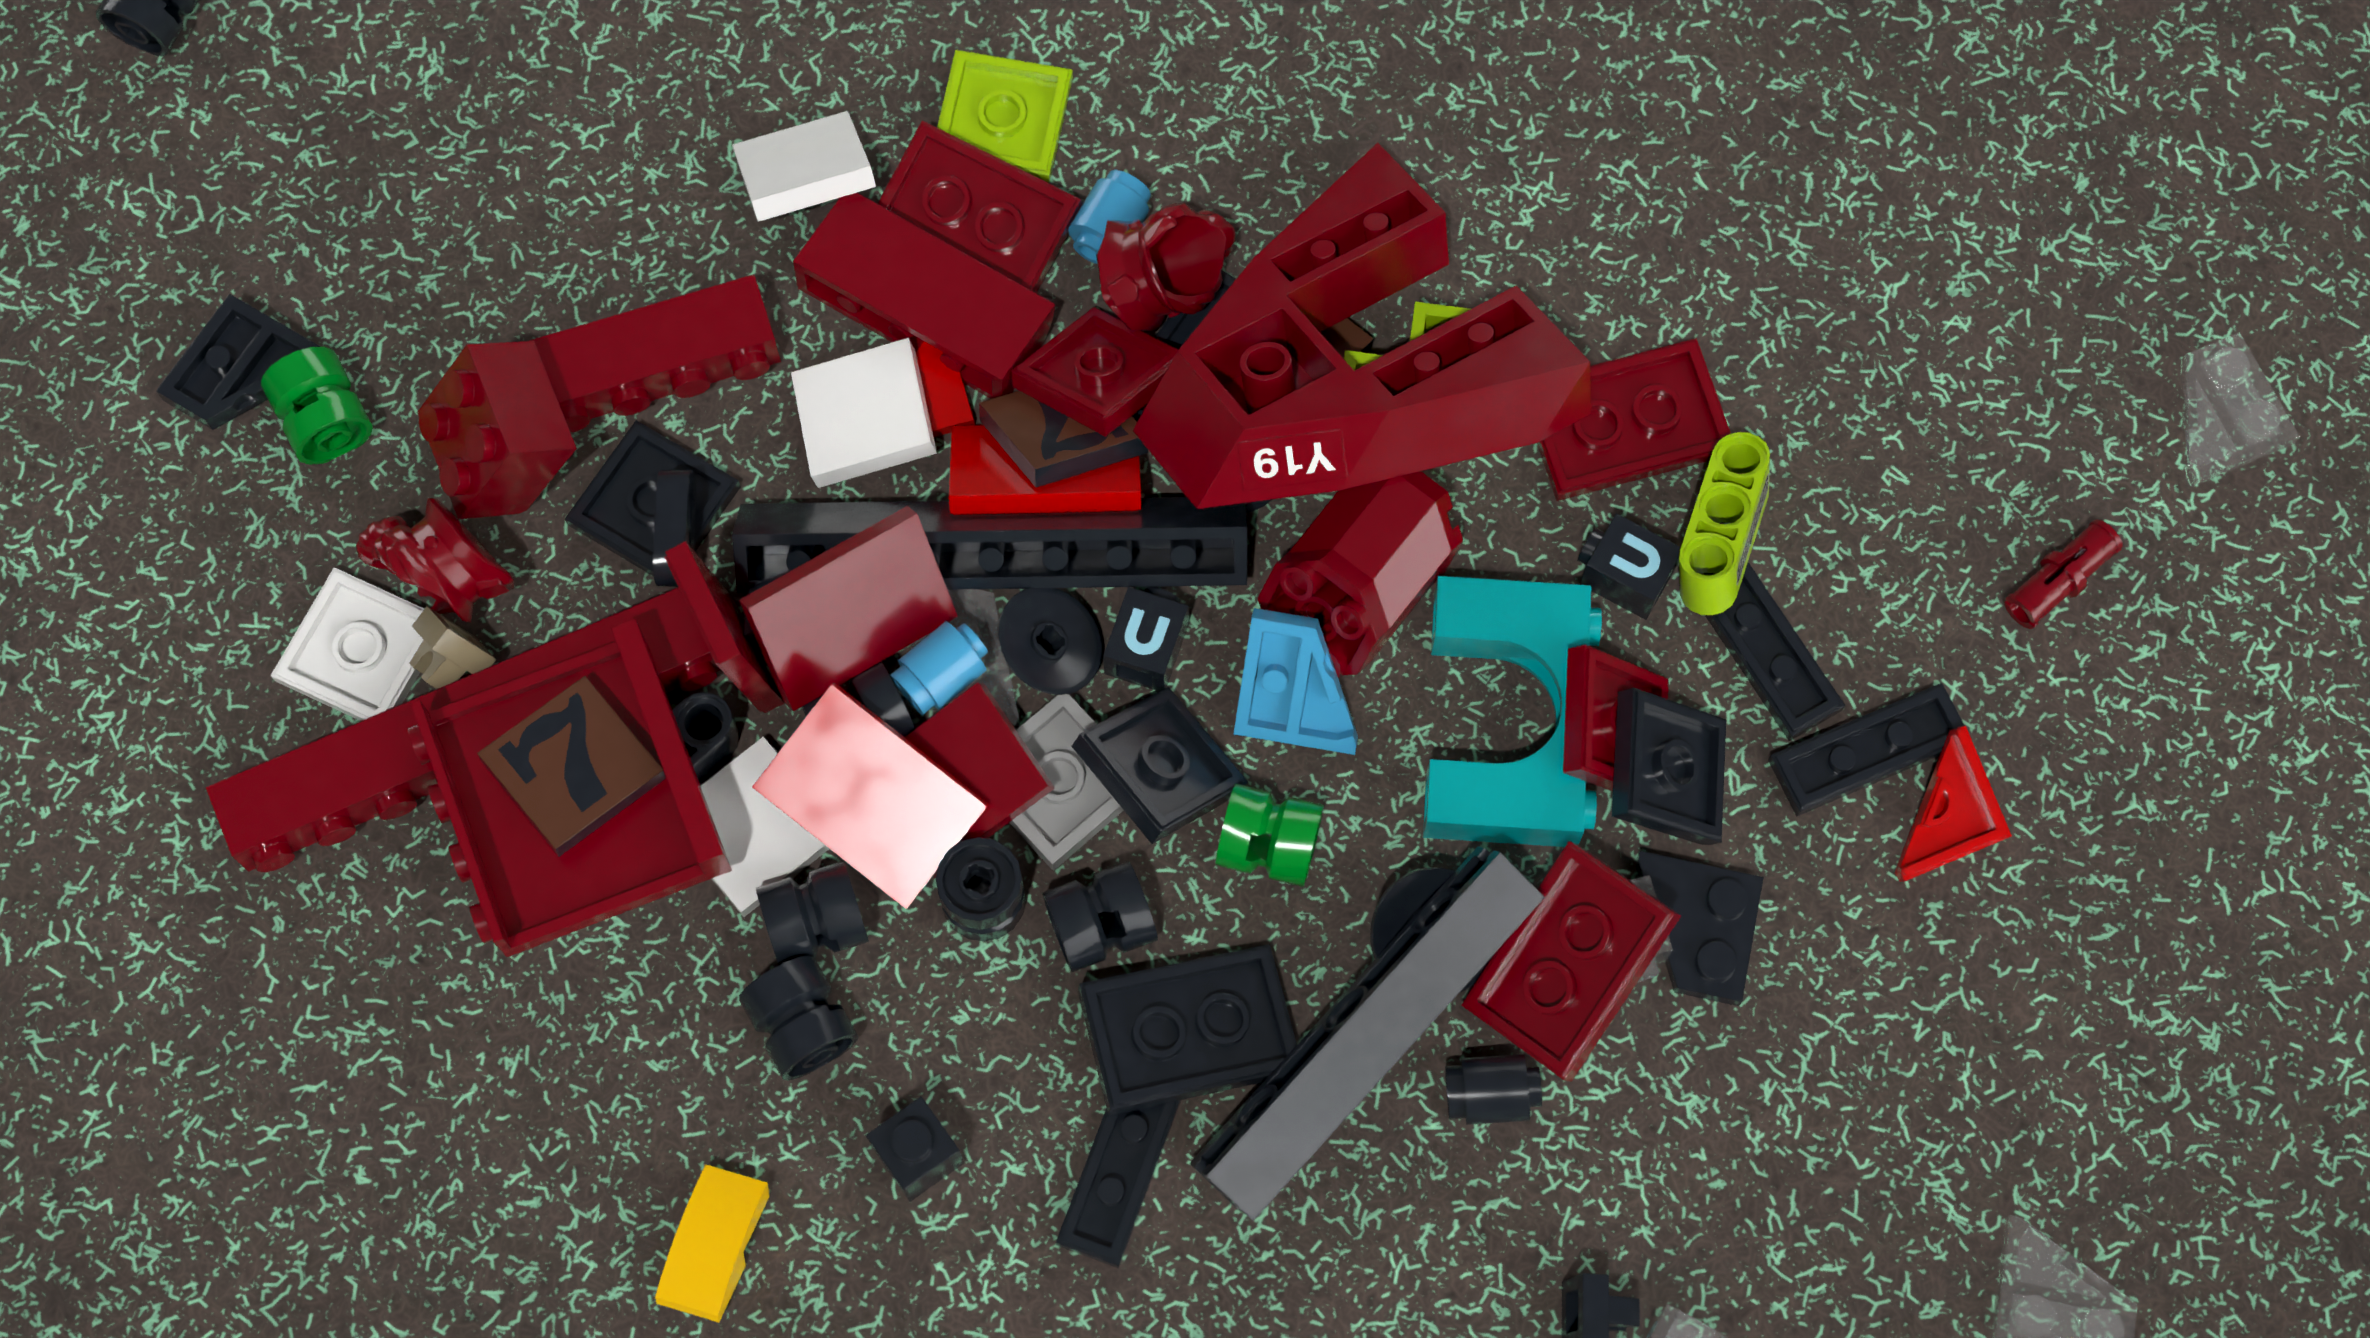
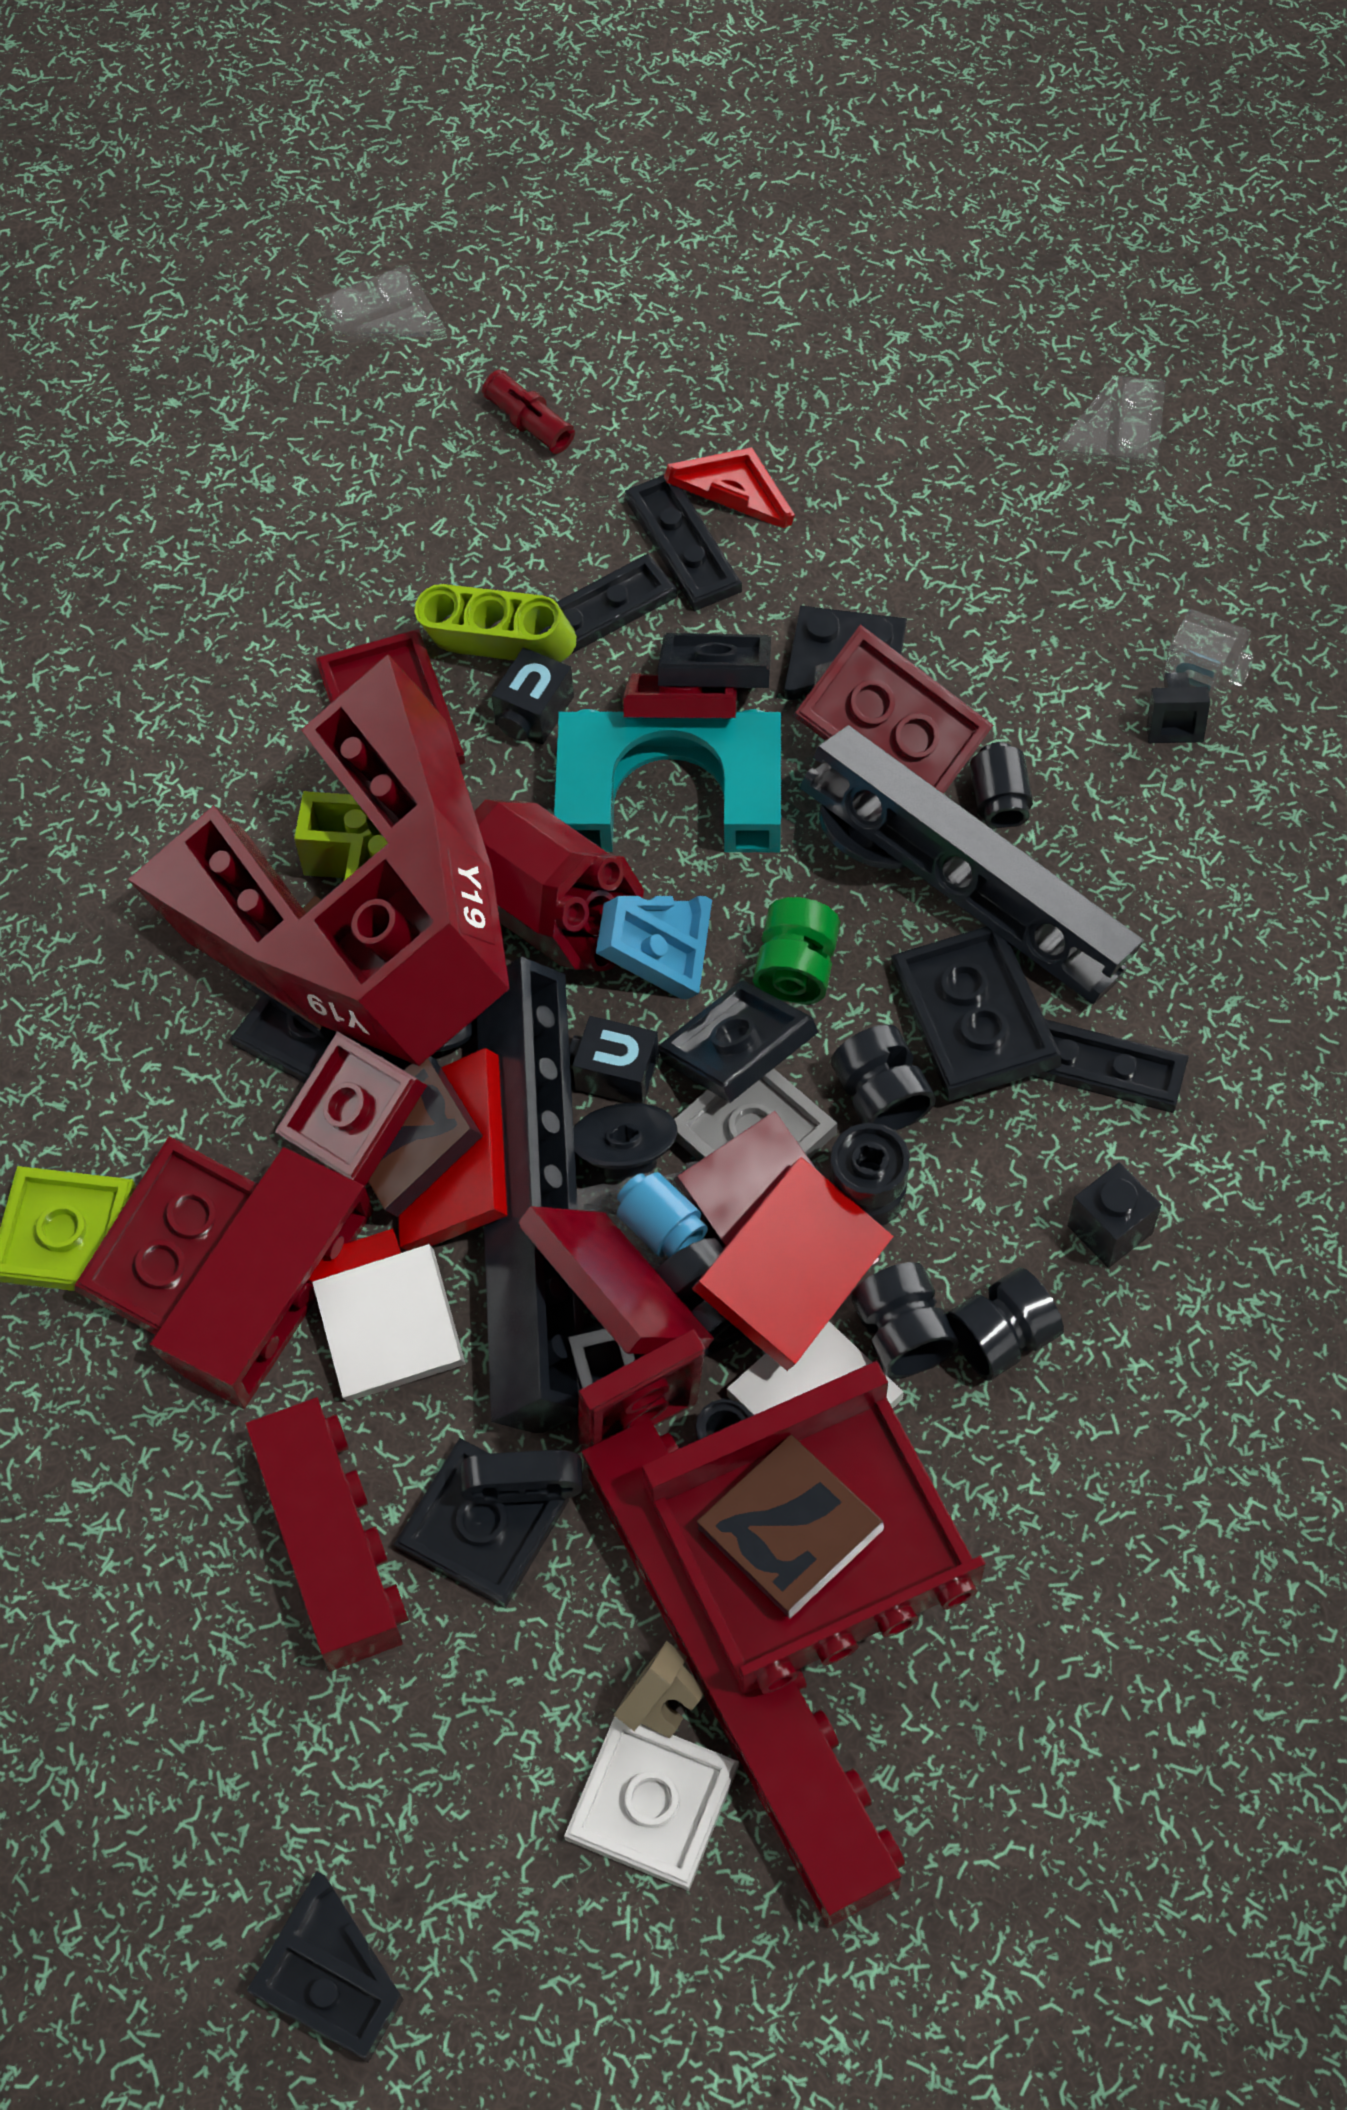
camera: 90 degrees left, 10 degrees down
(316, 405) = (361, 1881): green wheel -> none
(436, 558) = (559, 1711): dark red piece -> none
(495, 429) = (422, 1656): dark red brick -> none
(711, 1243) = (1221, 1383): yellow slope -> none
(803, 166) = (118, 1396): white tile -> none
(1112, 199) = (183, 1116): dark azure brick -> none
(1163, 264) = (244, 1051): dark red piece -> none

